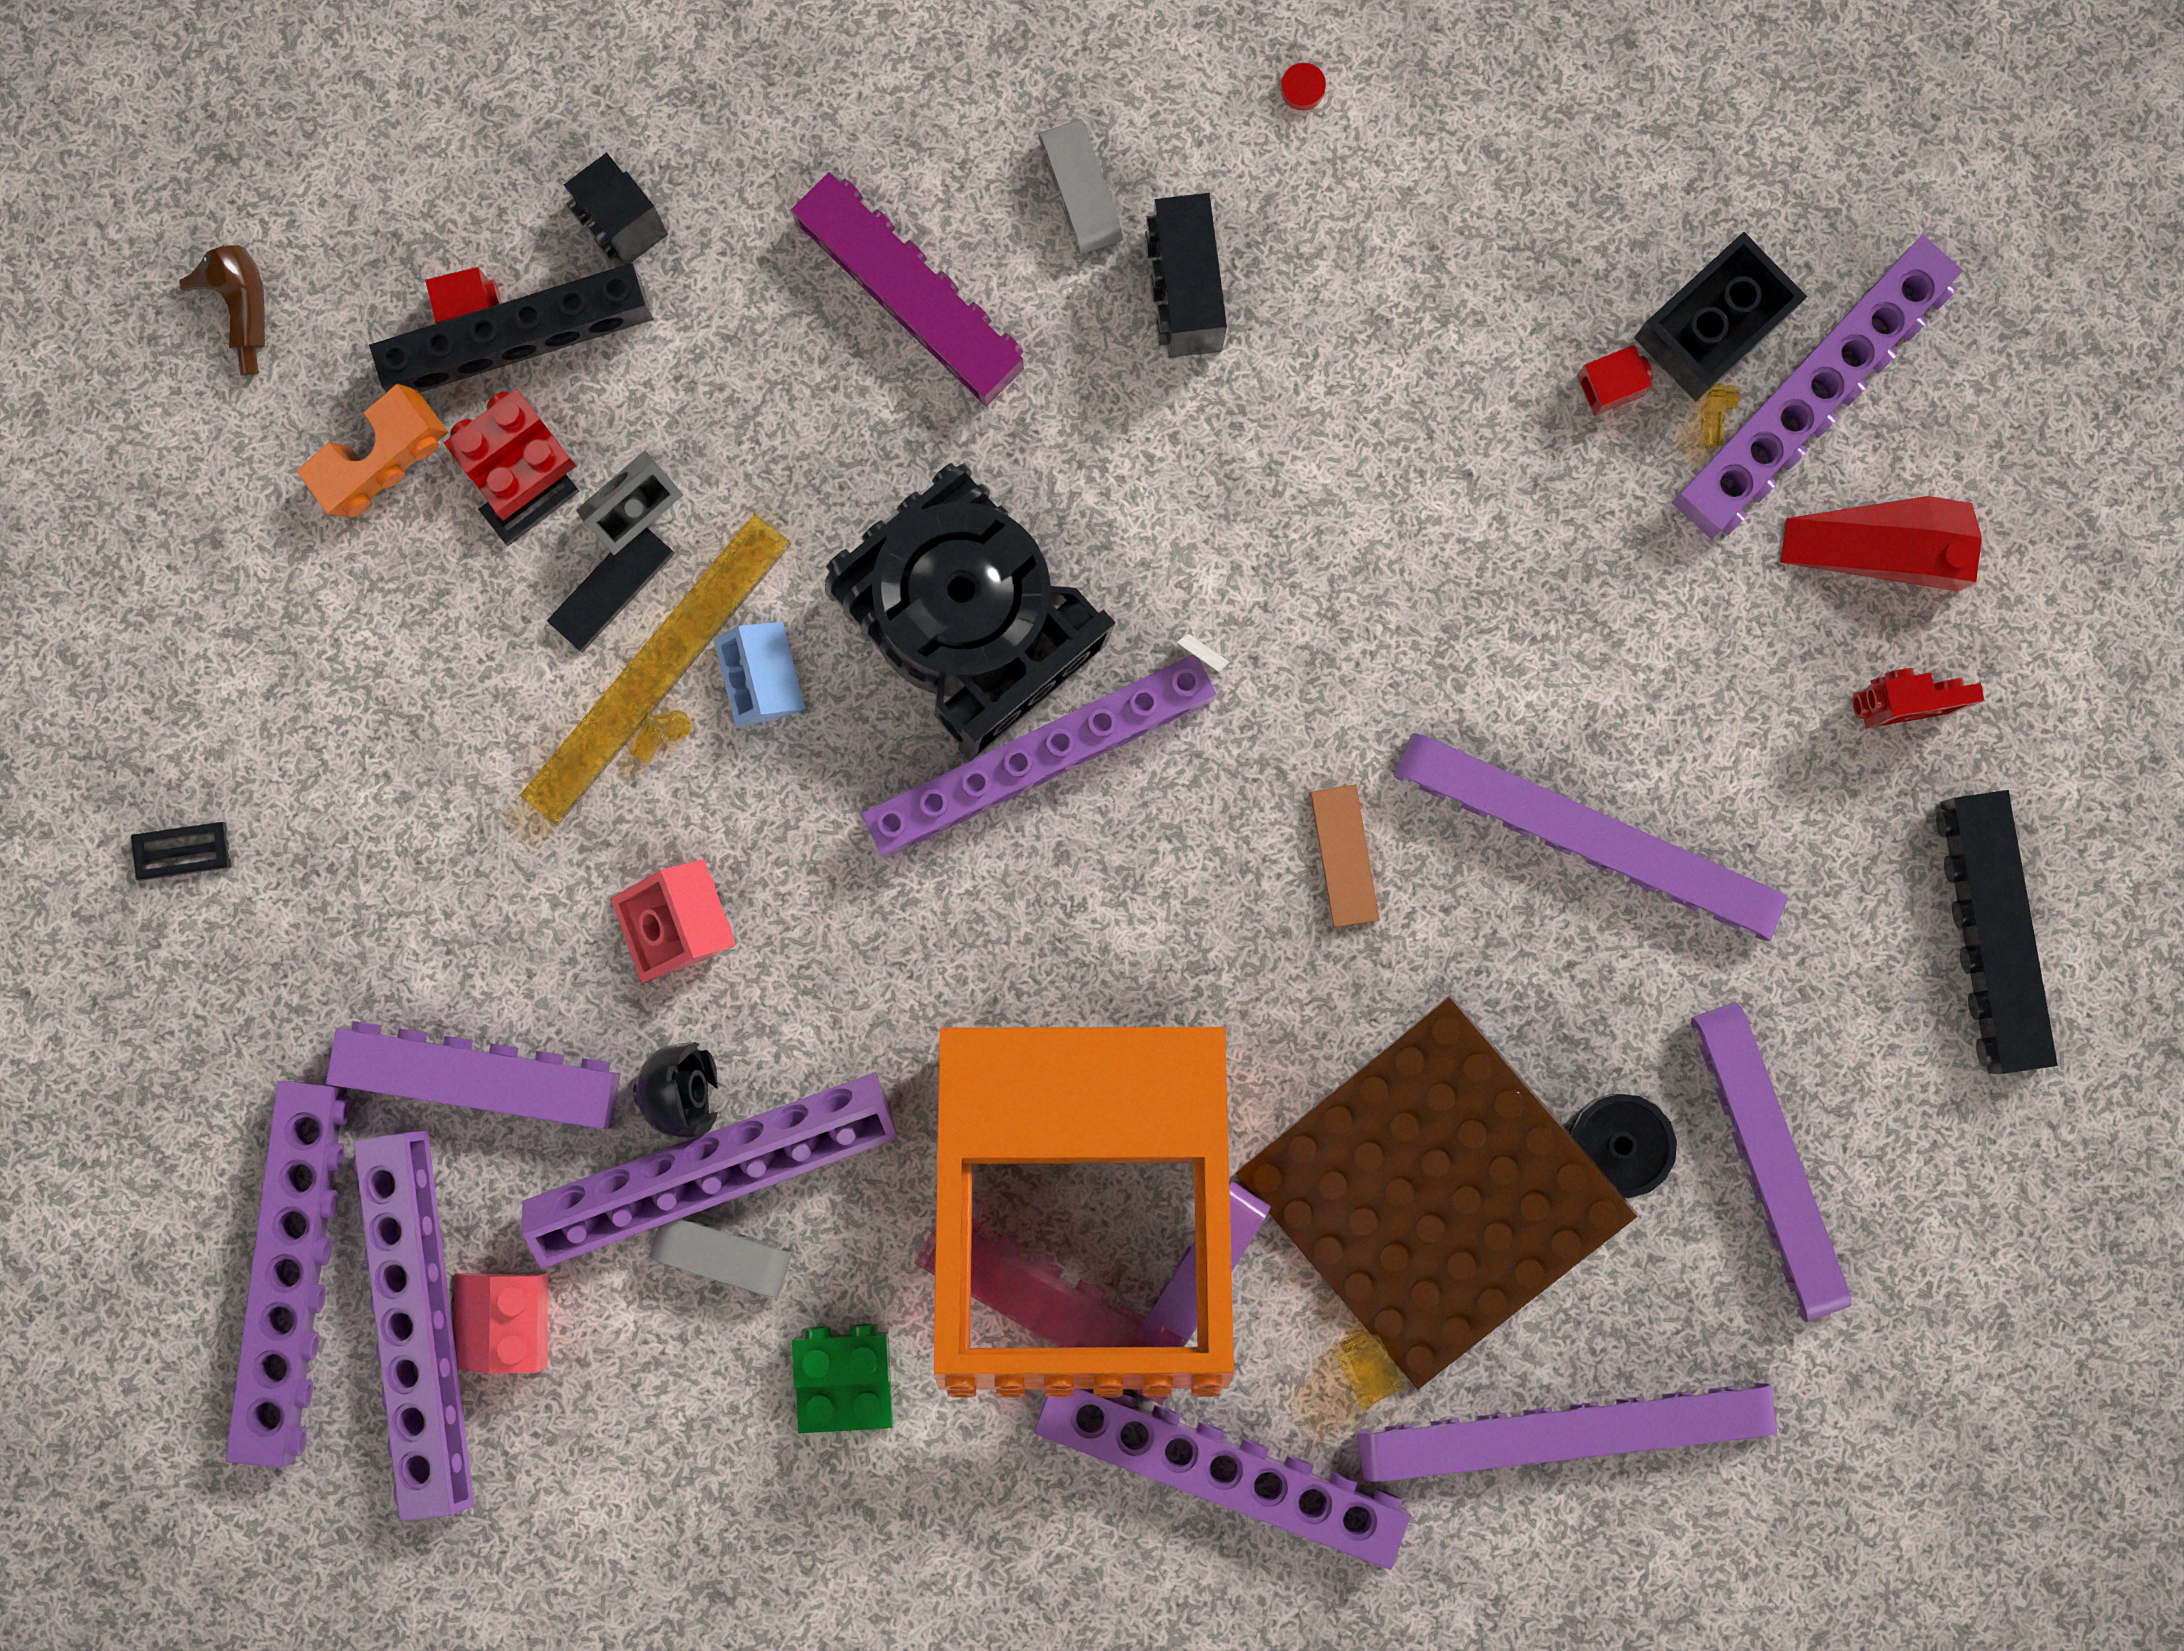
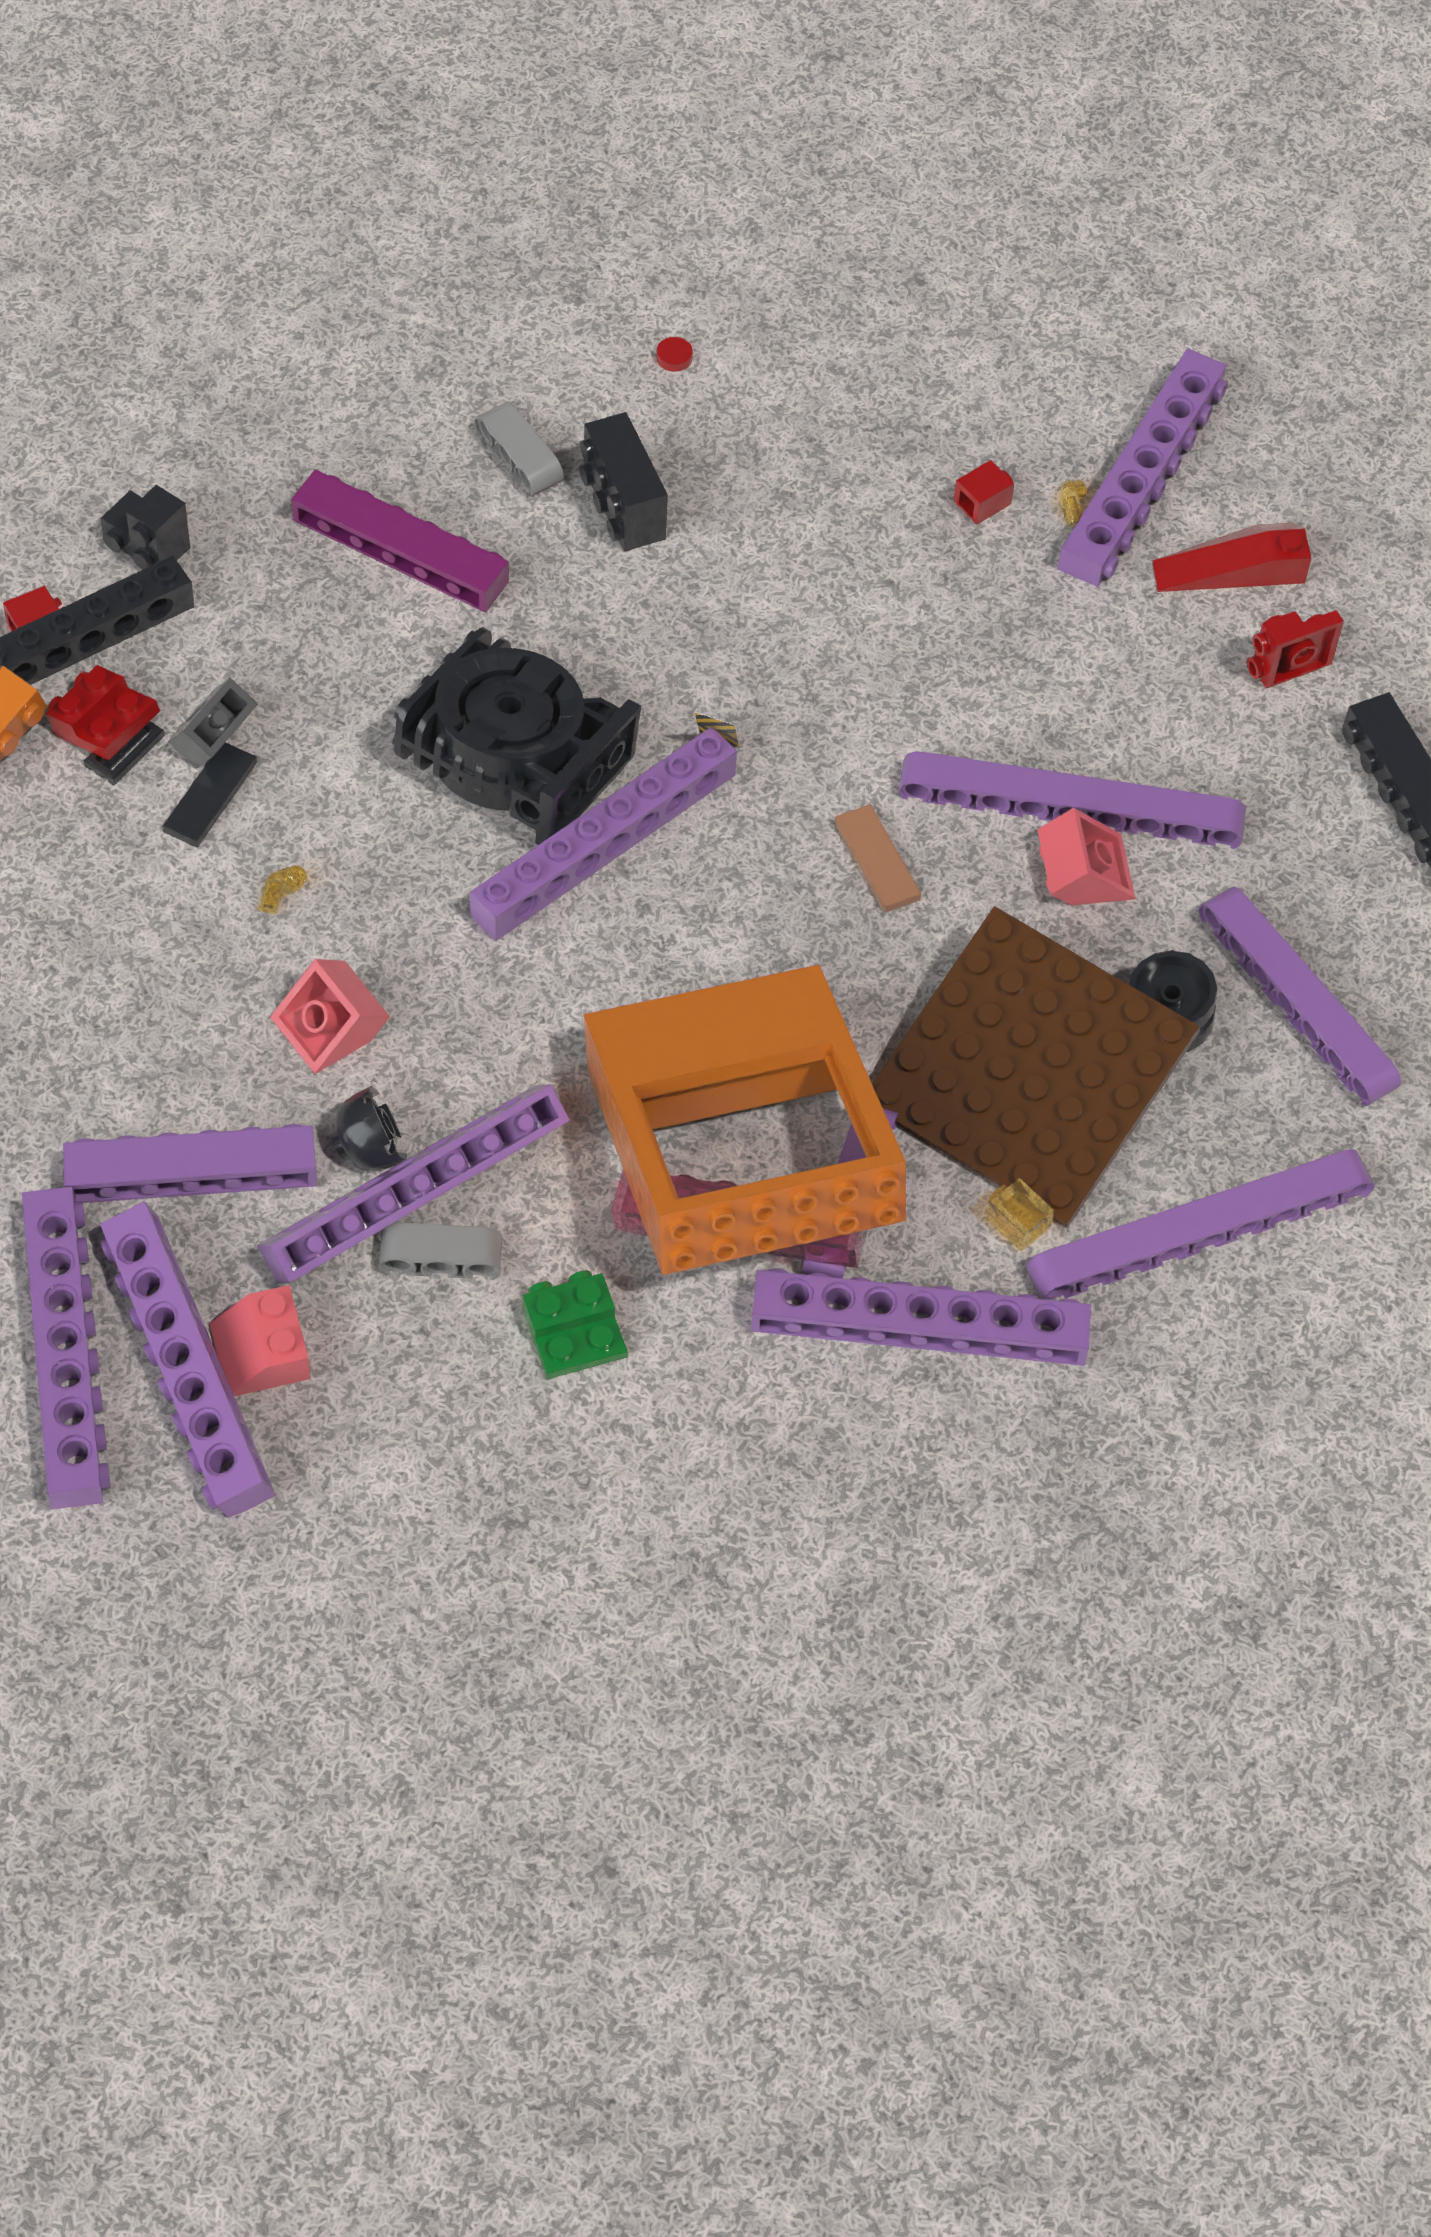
camera: 15 degrees left, 25 degrees down
(655, 670) = (263, 843): clear yellow plate -> none
(759, 673) = (351, 826): light blue brick -> none
(1580, 925) = (1084, 860): none -> coral slope
(1720, 316) = (1051, 432): black brick -> none

